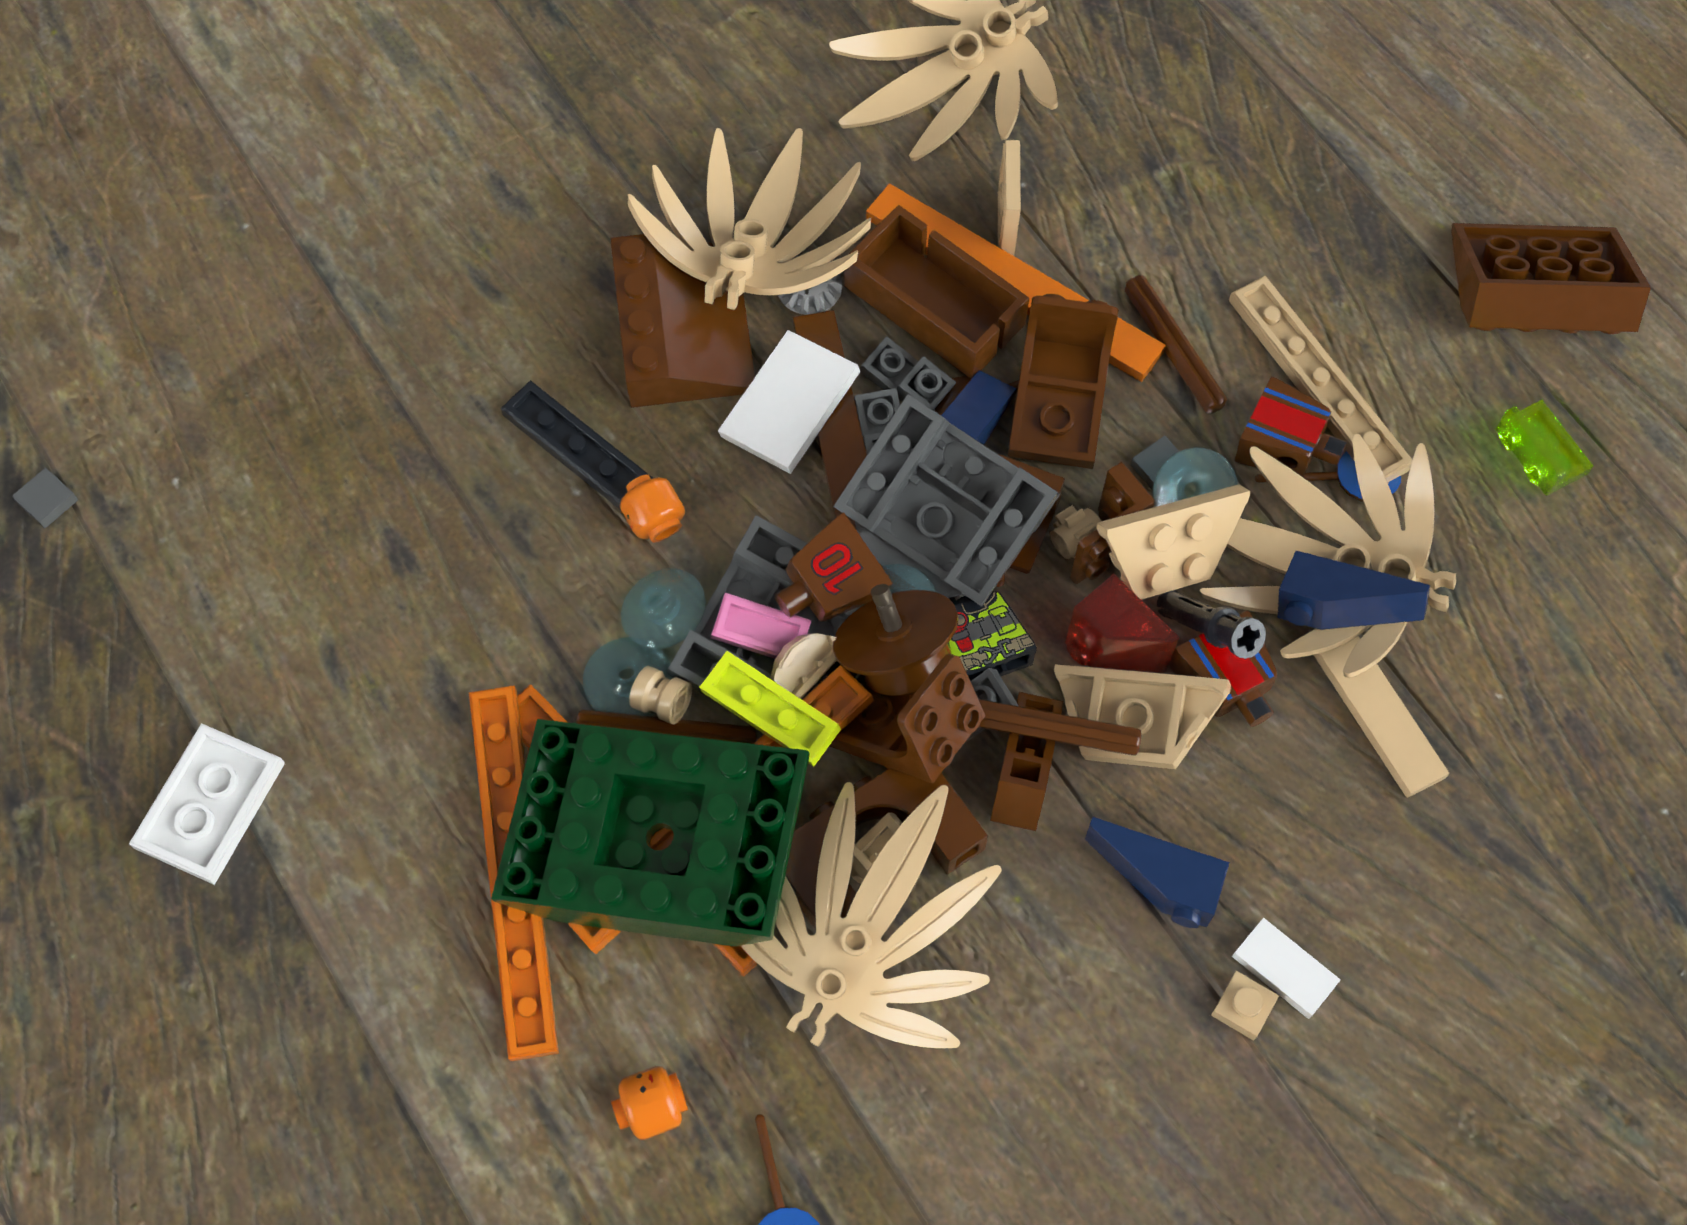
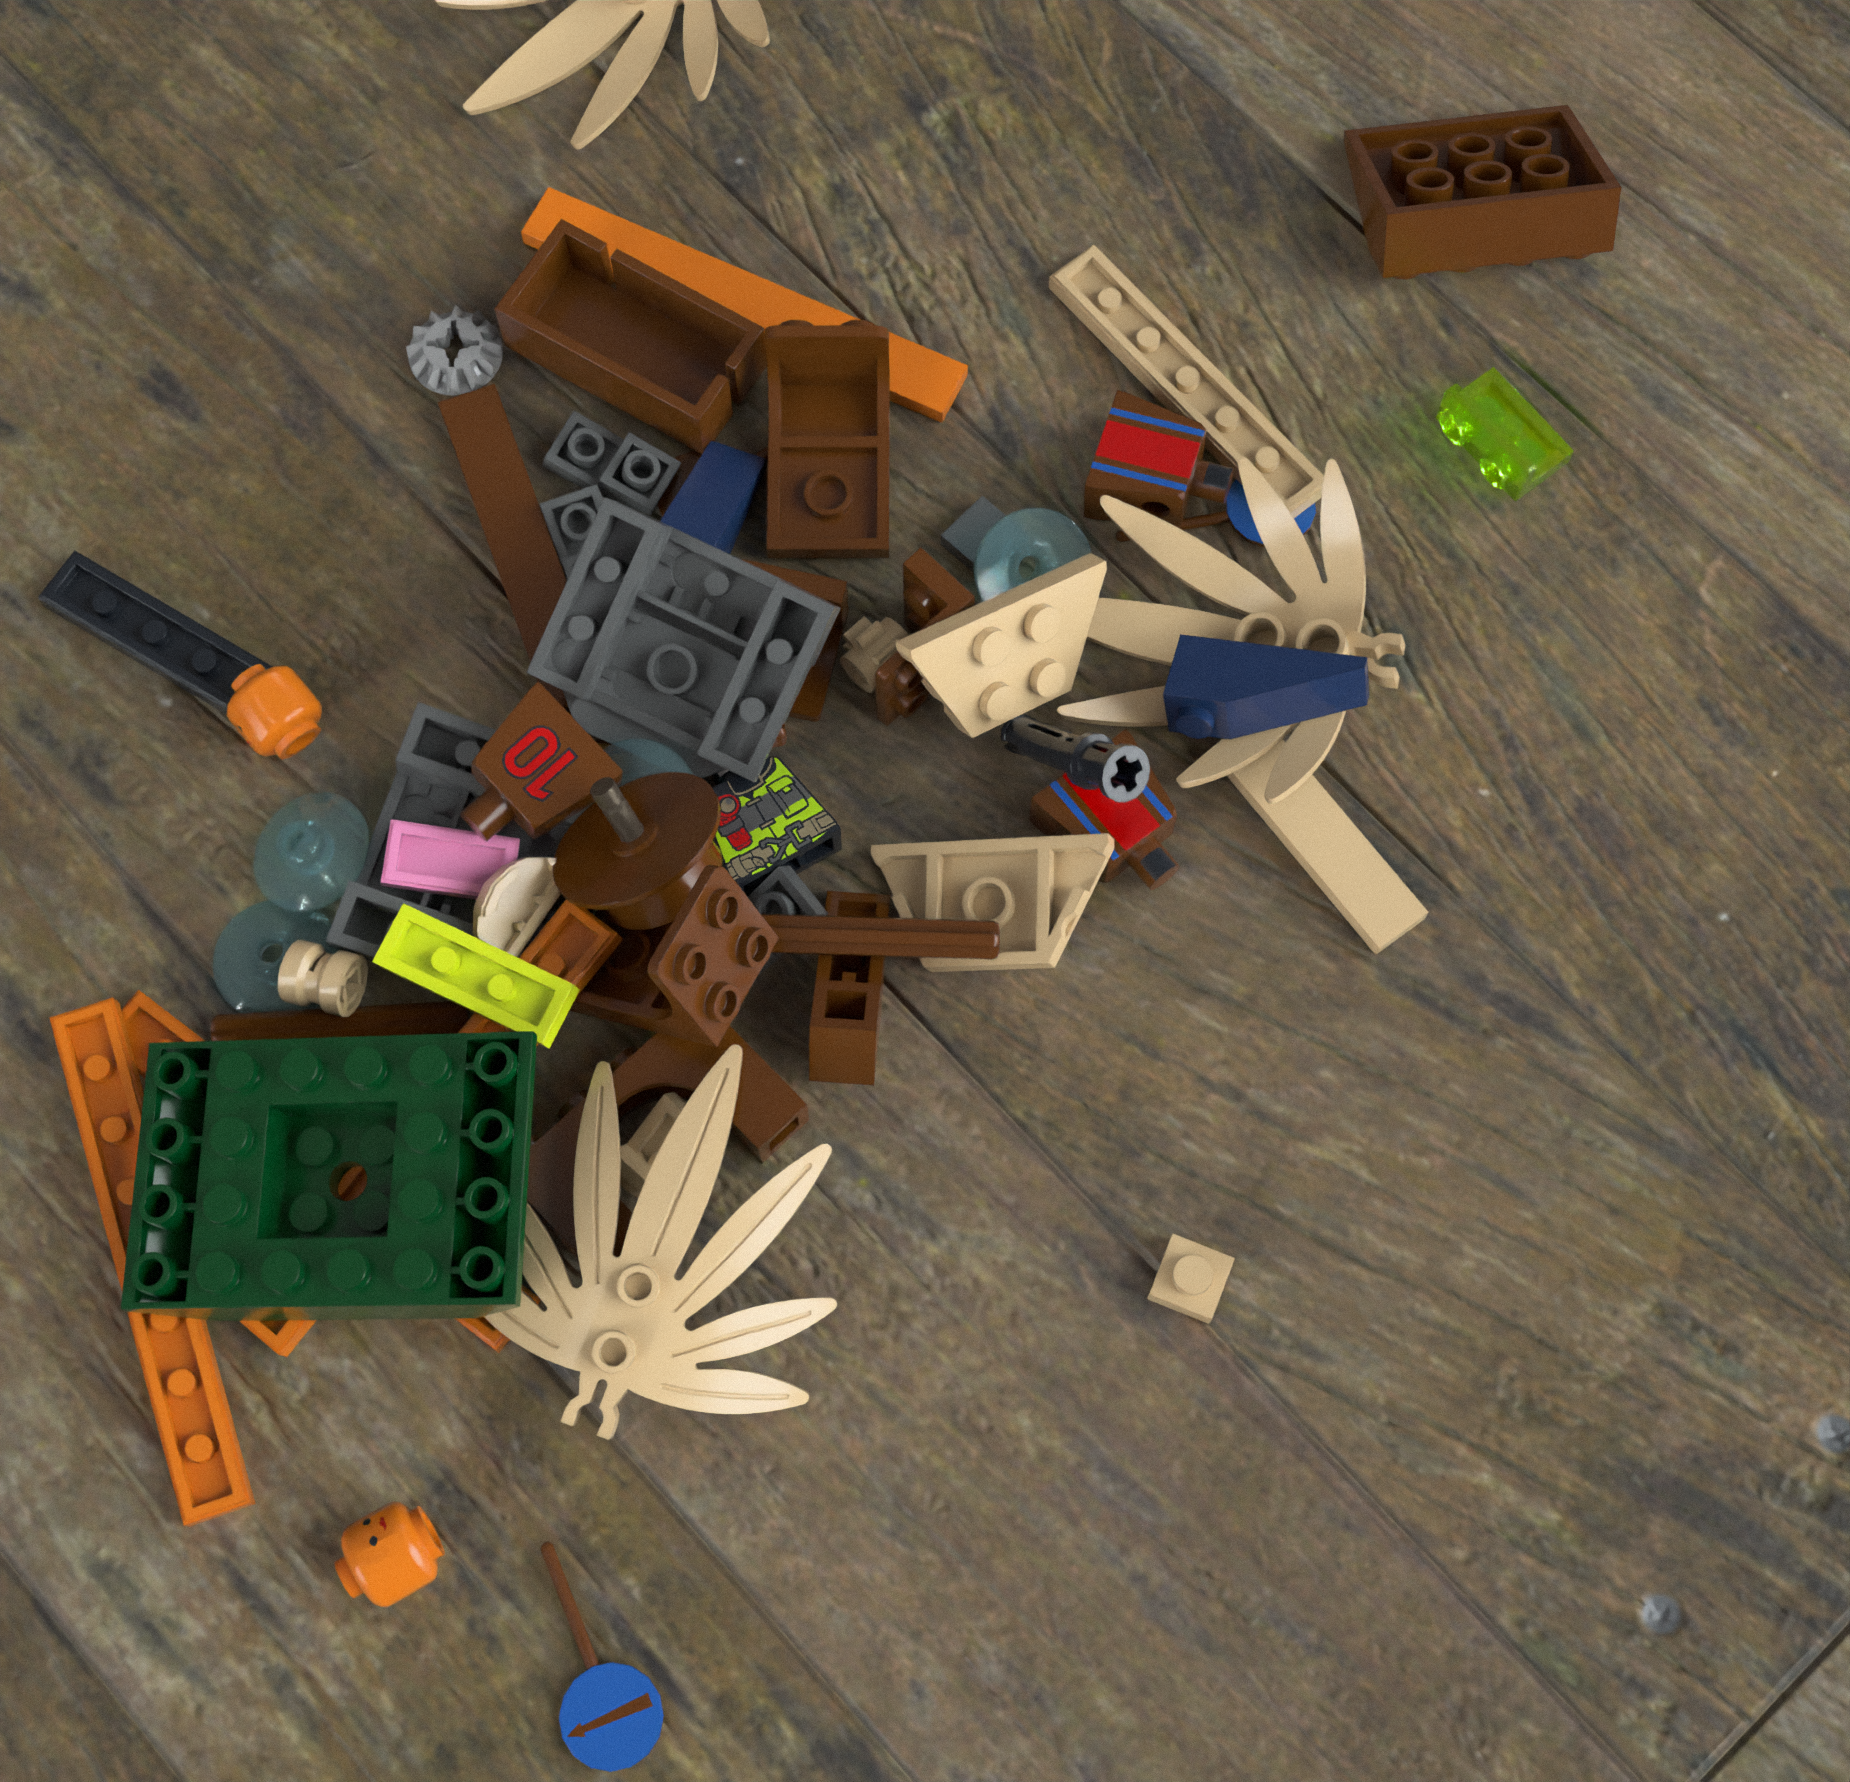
camera: 10 degrees left, 5 degrees up
(670, 337) = (277, 429): reddish brown slope -> none
(749, 260) = (353, 316): tan plant -> none
(789, 401) = (448, 526): white tile -> none
(1009, 196) = (718, 182): tan tile -> none
(1119, 631) = (950, 788): clear red slope -> none
(1167, 874) = (1064, 1116): dark blue slope -> none
(1177, 345) = (983, 361): reddish brown axle -> none
(1286, 968) = (1240, 1218): white tile -> none

